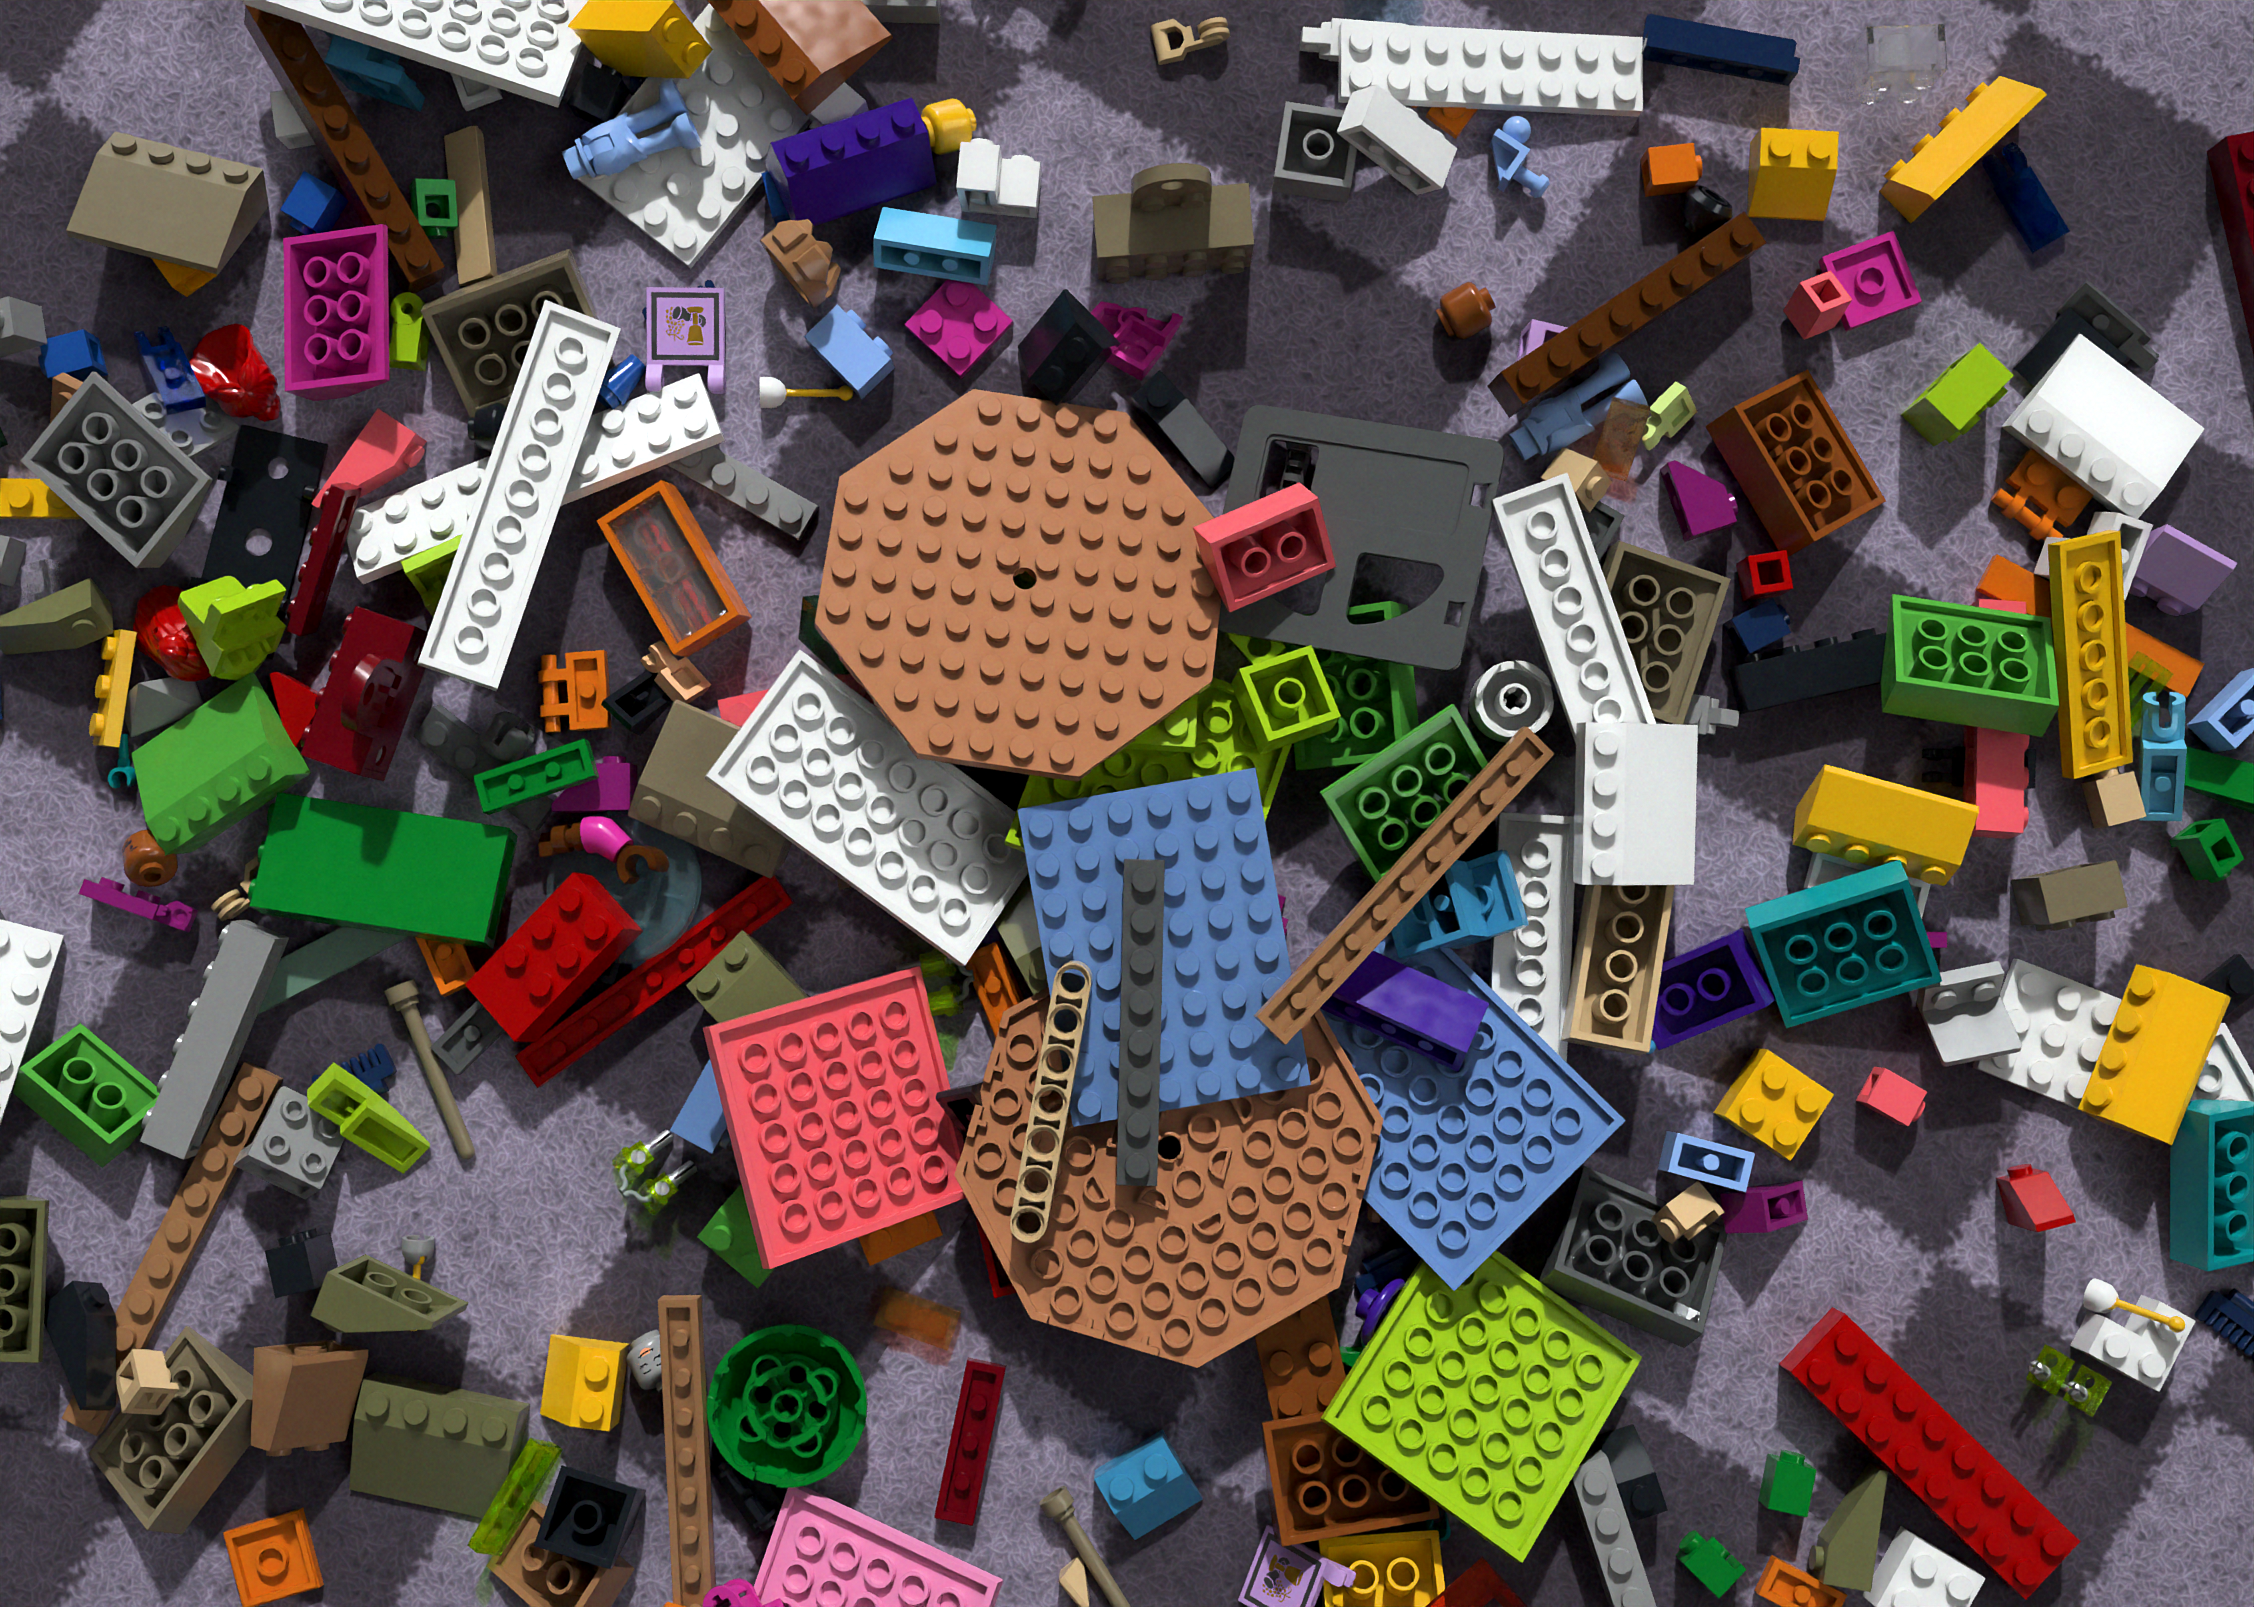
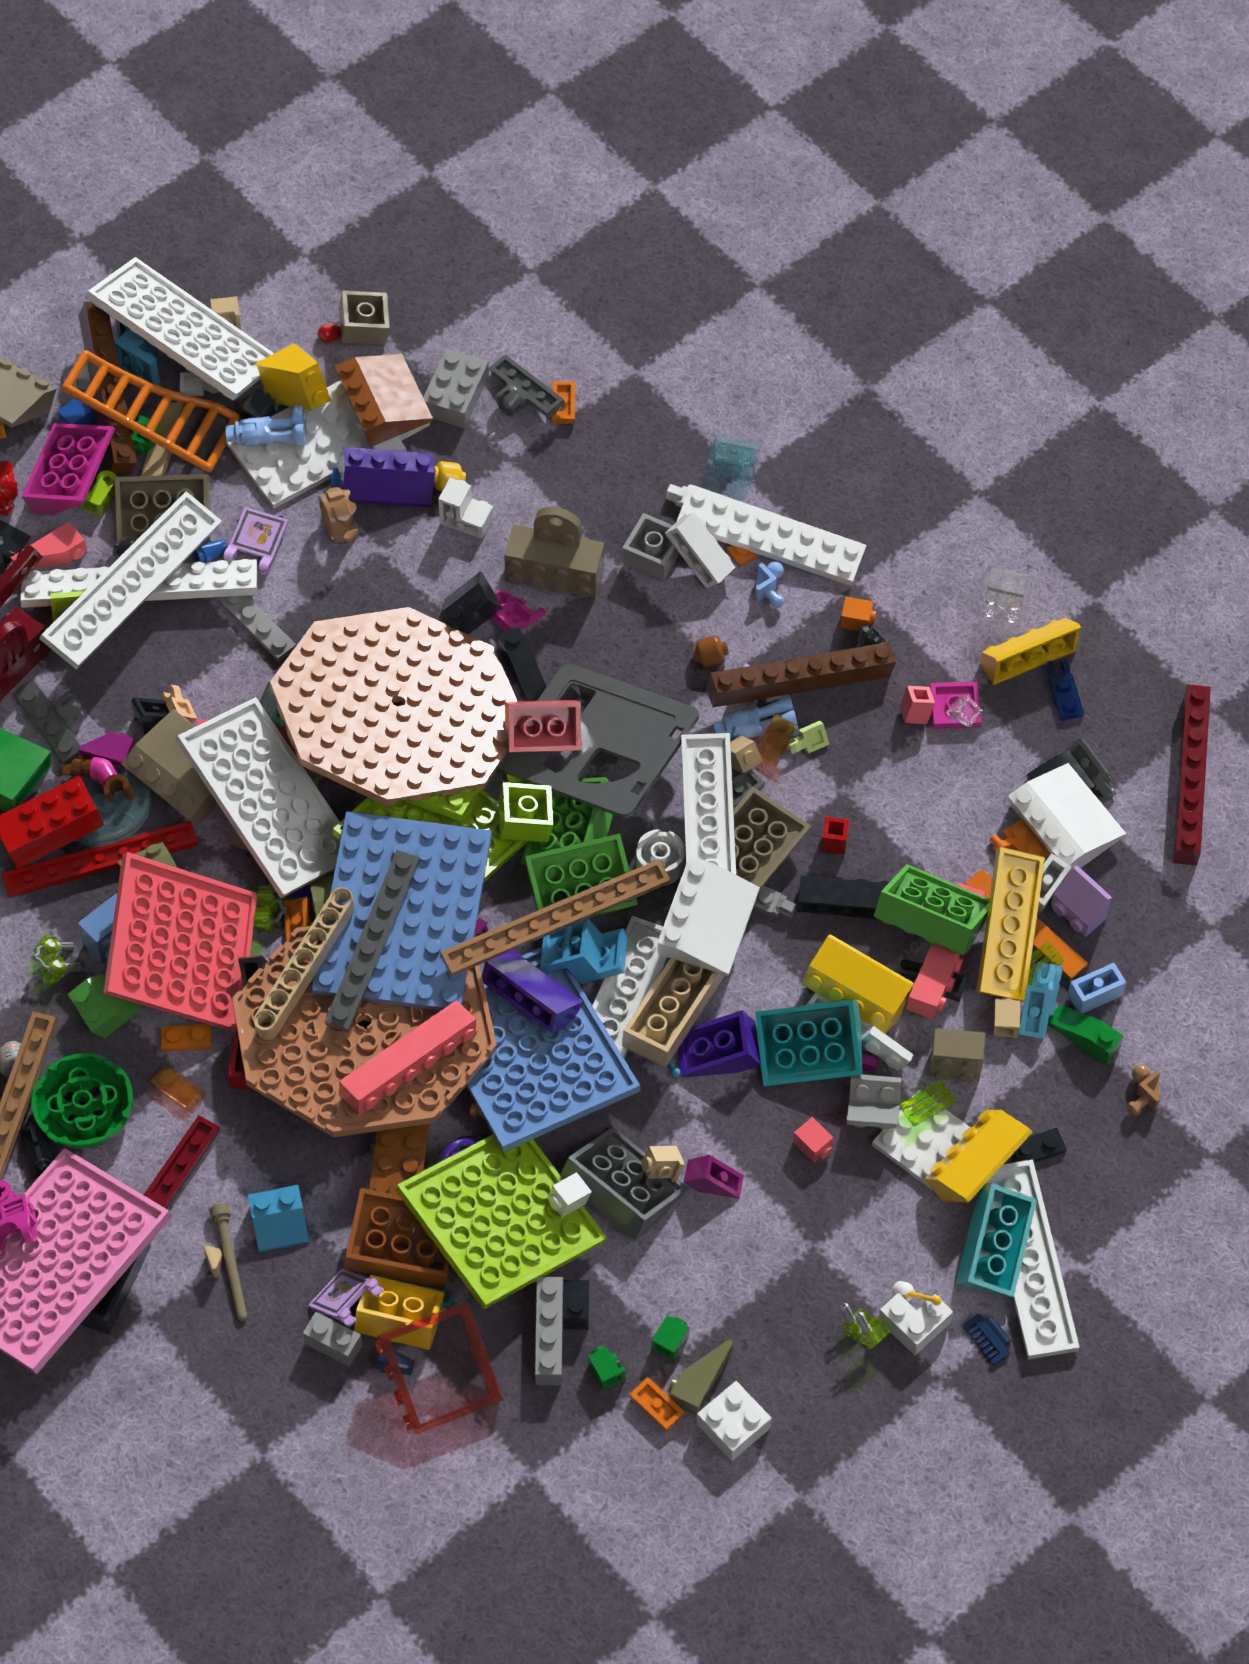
camera: 15 degrees right, 25 degrees down
(449, 128) = (168, 395): none -> orange bar
(536, 776) = (78, 726): green plate -> none
(586, 688) = (120, 707): orange plate -> none
(674, 569) = (201, 650): brick -> none
(774, 392) = (295, 581): hinge -> none
(850, 351) = (347, 572): light blue brick -> none
(934, 246) = (416, 532): medium azure brick -> none
(959, 325) = (415, 578): dark pink plate -> none
(1212, 32) = (618, 473): tan piece -> none
(1265, 1203) = (407, 1057): none -> coral brick
(1572, 1324) = (569, 1195): none -> white brick
(1698, 501) = (812, 789): magenta slope -> none
(1706, 1161) = (688, 1136): light blue brick -> none
(1719, 50) = (908, 564): dark blue panel -> none
(1758, 627) = (823, 862): dark blue brick -> none
(1773, 1103) = (738, 1120): yellow brick -> none
(1791, 173) = (928, 636): yellow slope -> none
(1795, 463) = (876, 785): dark orange slope -> none
(1891, 290) = (964, 710): none -> clear slope
(1929, 1453) = (764, 1345): red brick -> none
(1946, 915) = (886, 1048): none -> white plate
(1959, 396) = (982, 772): lime brick -> none
(2033, 1199) = (878, 1220): slope -> none
(2054, 1001) = (945, 1092): none -> clear neon green tile
(2208, 849) = (1055, 1062): green brick -> none

